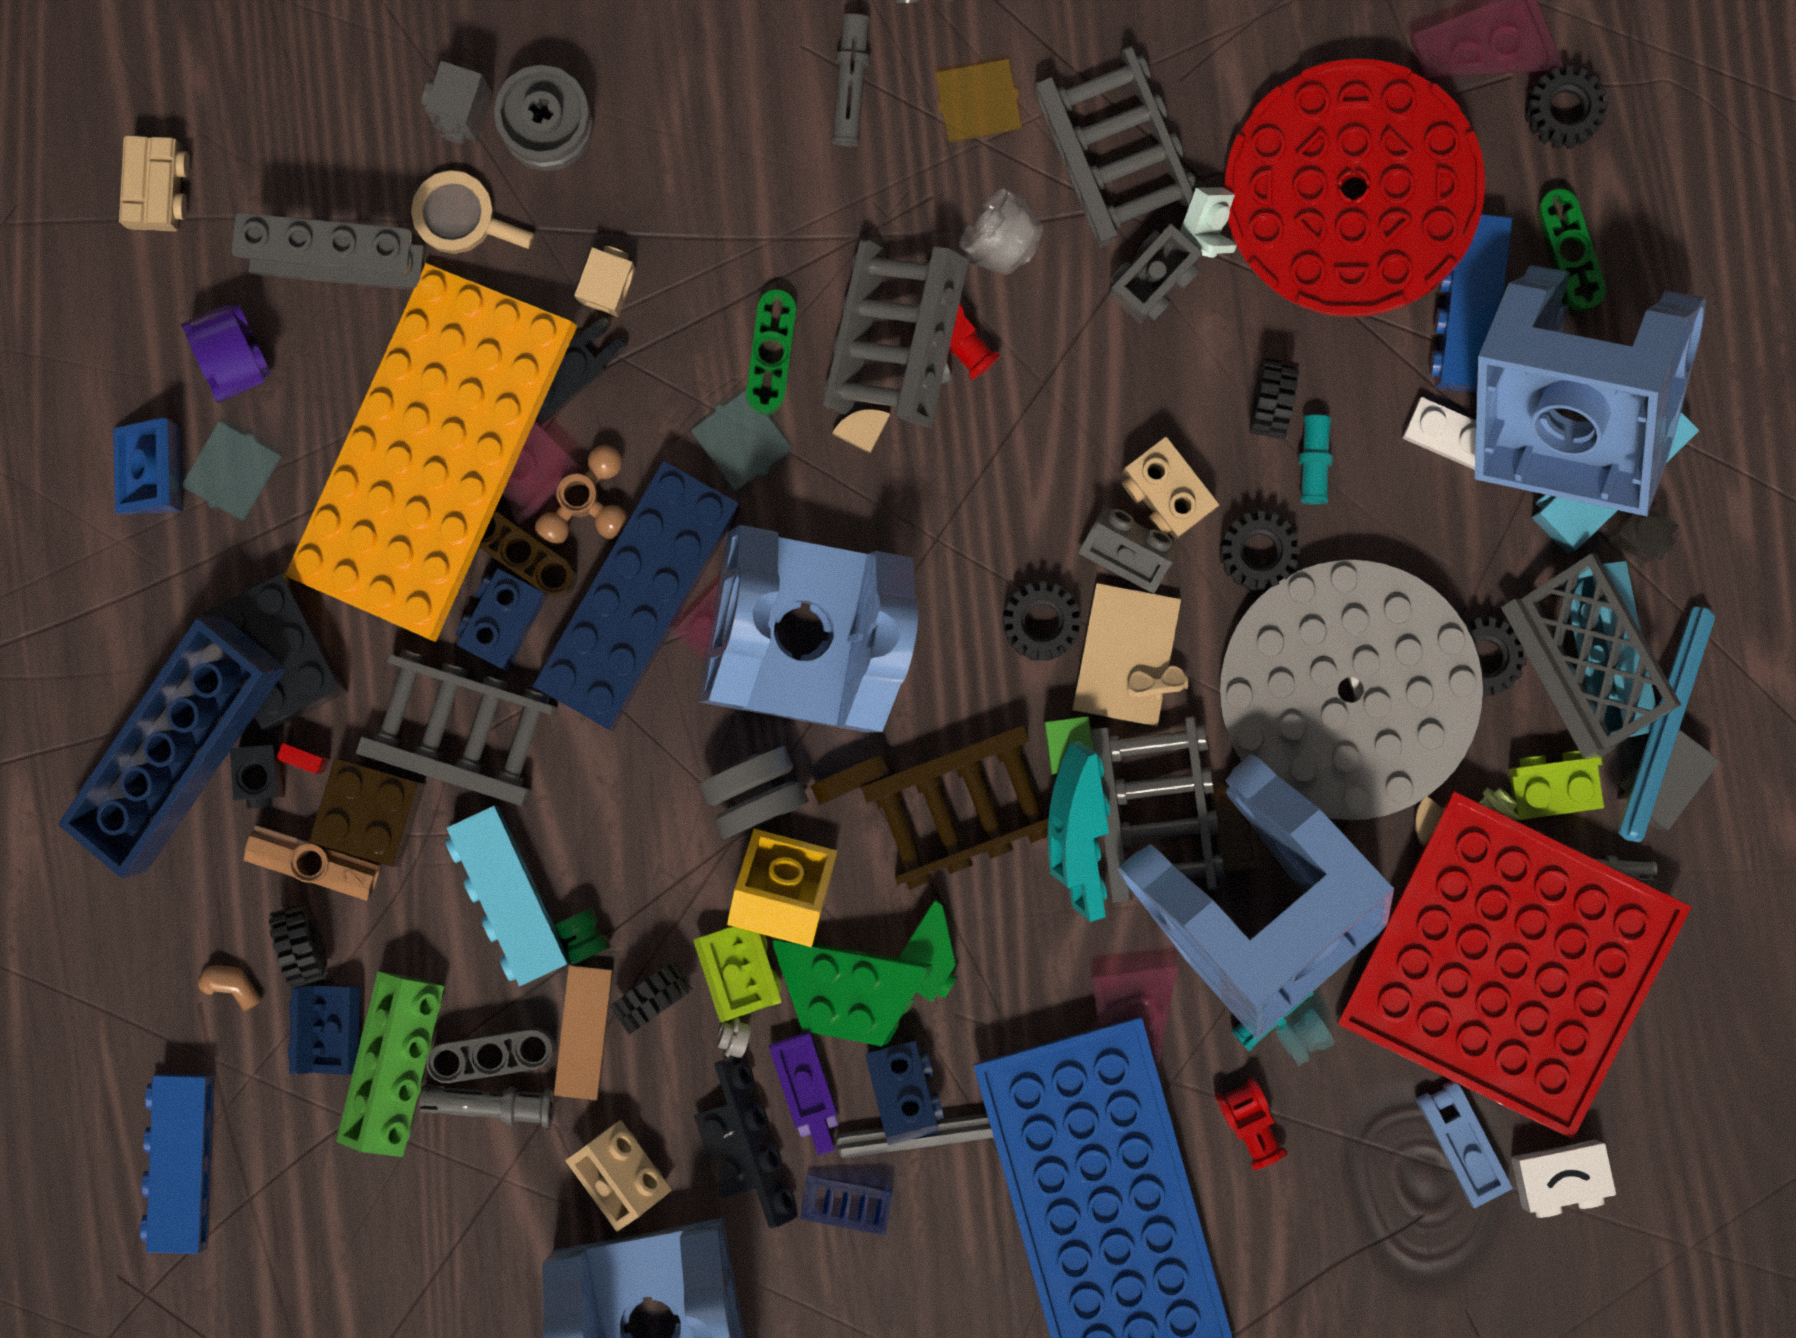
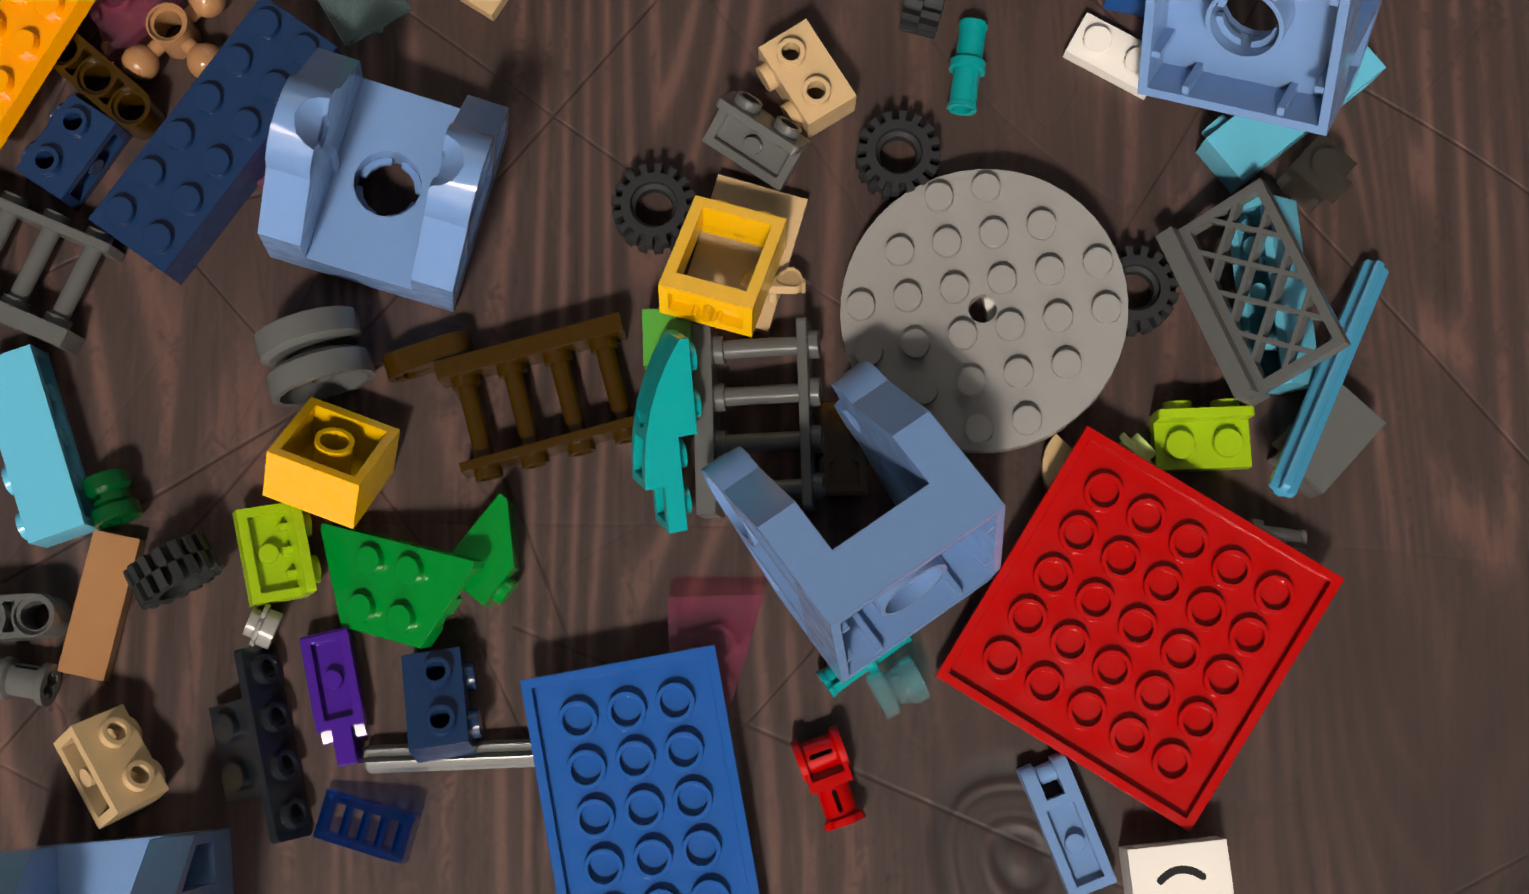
camera: 10 degrees right, 5 degrees down
(1105, 713) = (713, 302): none -> yellow window

